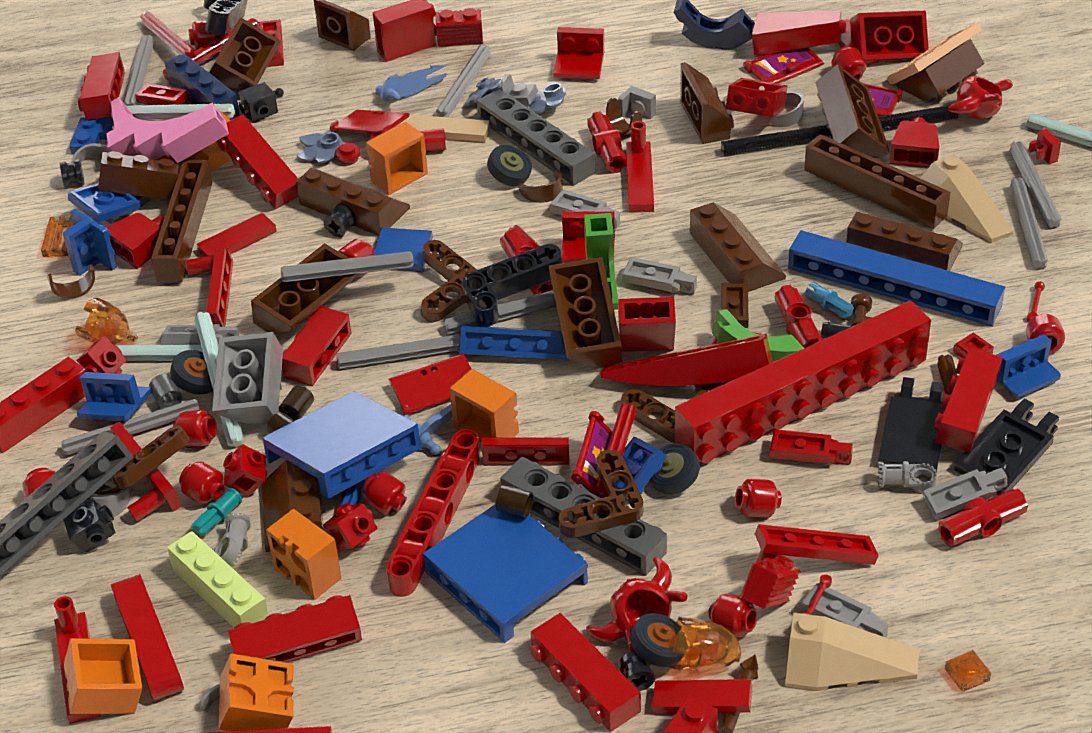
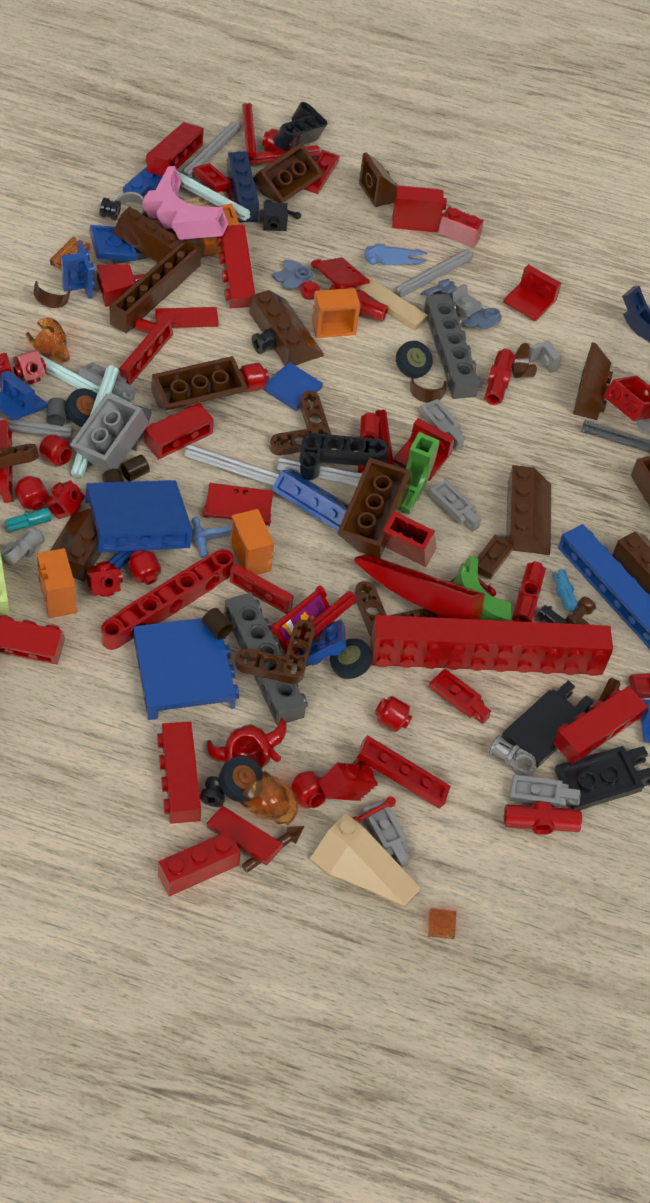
camera: 20 degrees right, 10 degrees up
(346, 266) = (234, 382): light grey axle -> none
(639, 170) = (506, 413): red piece -> none

